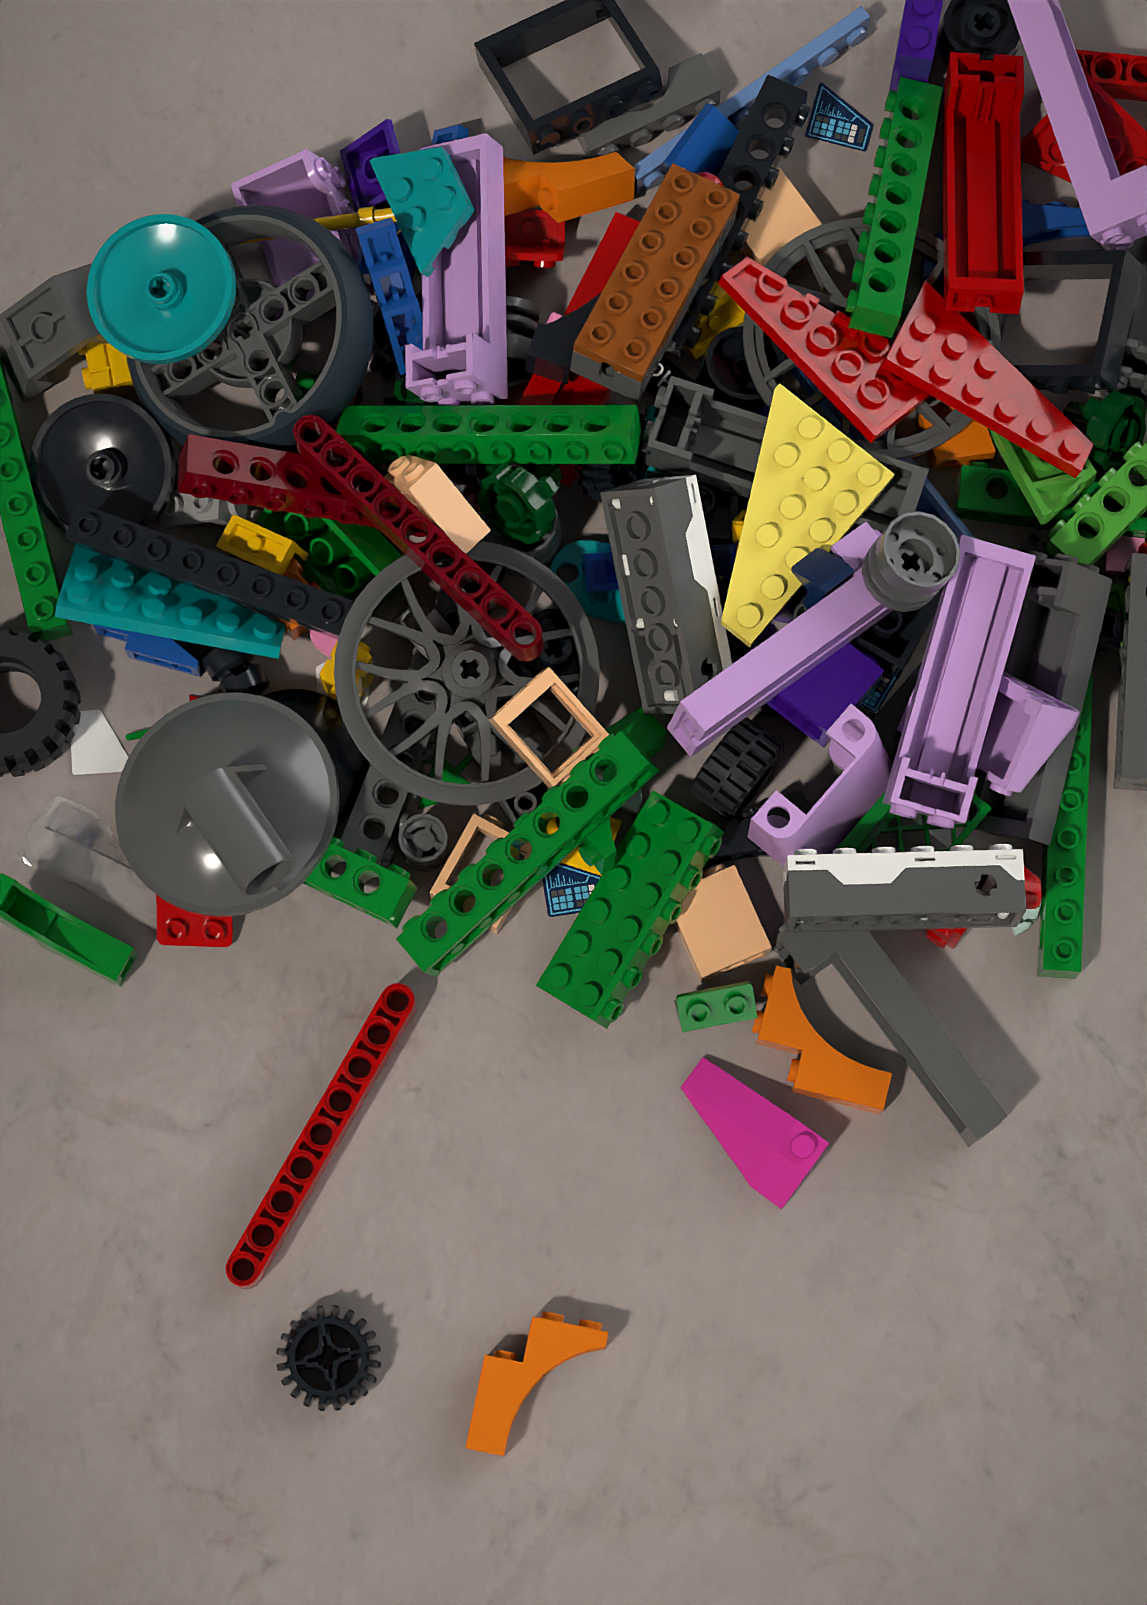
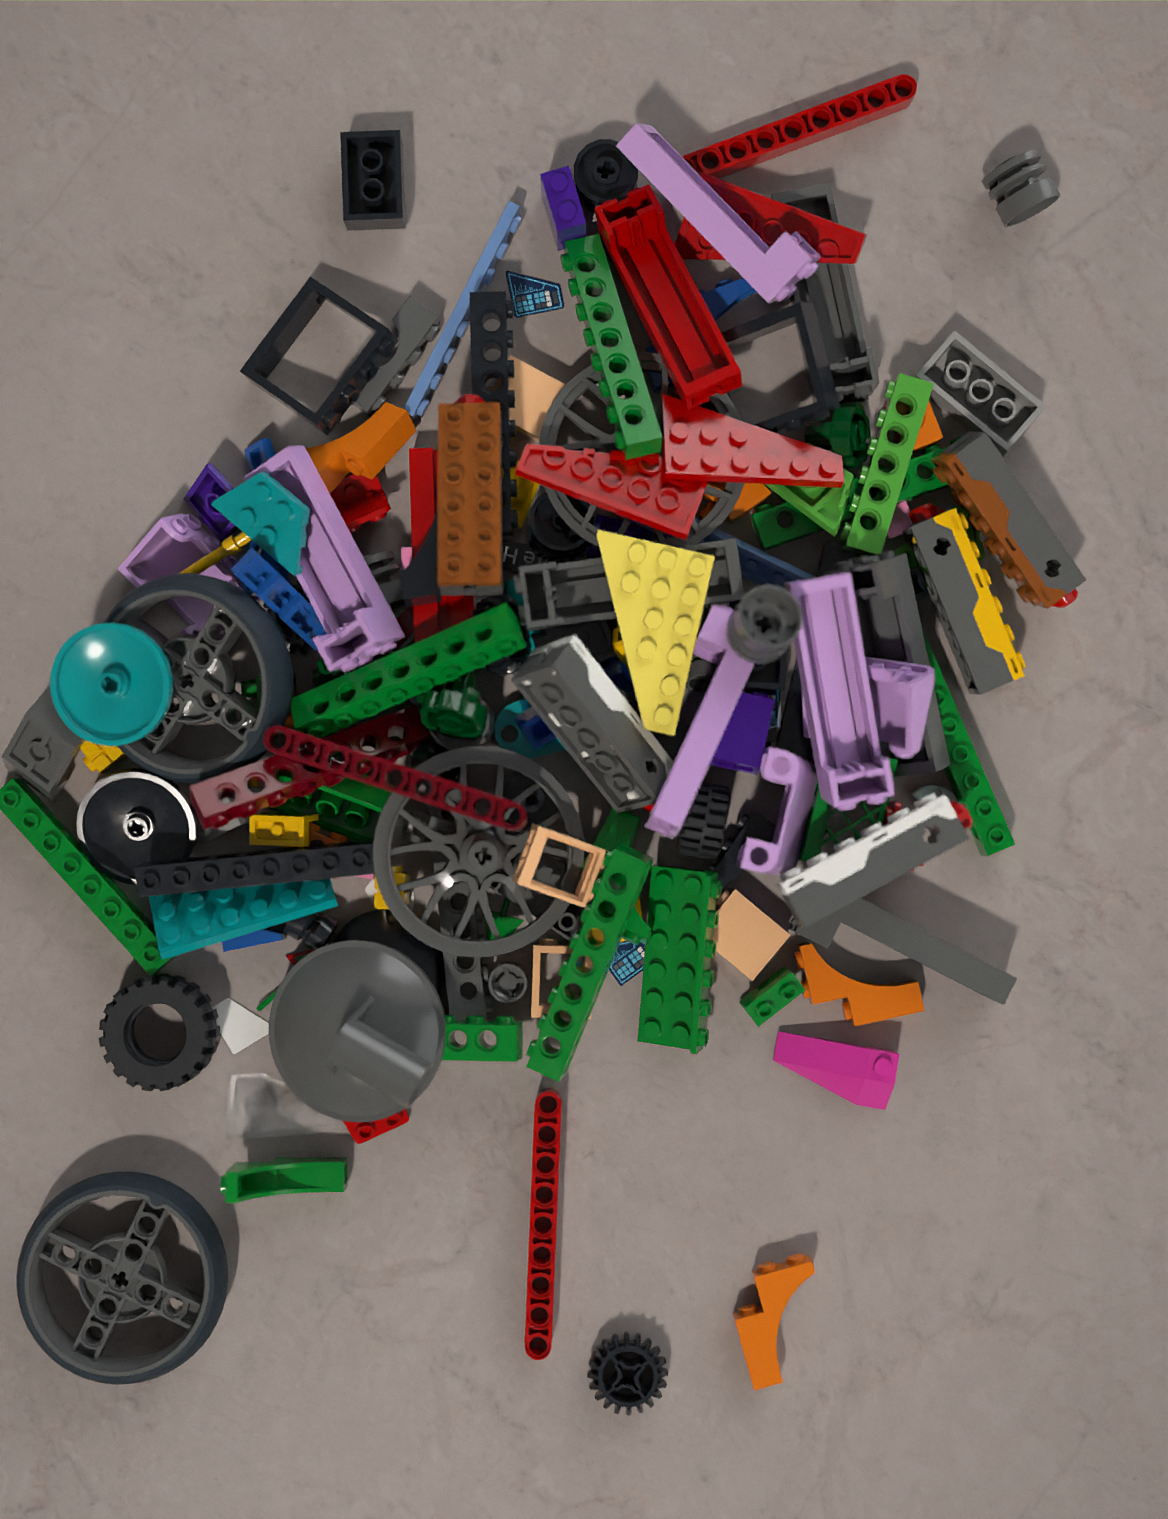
camera: 30 degrees left, 10 degrees up
(438, 500) = (395, 745): light nougat window -> none
(704, 143) = (450, 370): blue slope -> none
(820, 575) = (700, 661): dark blue slope -> none

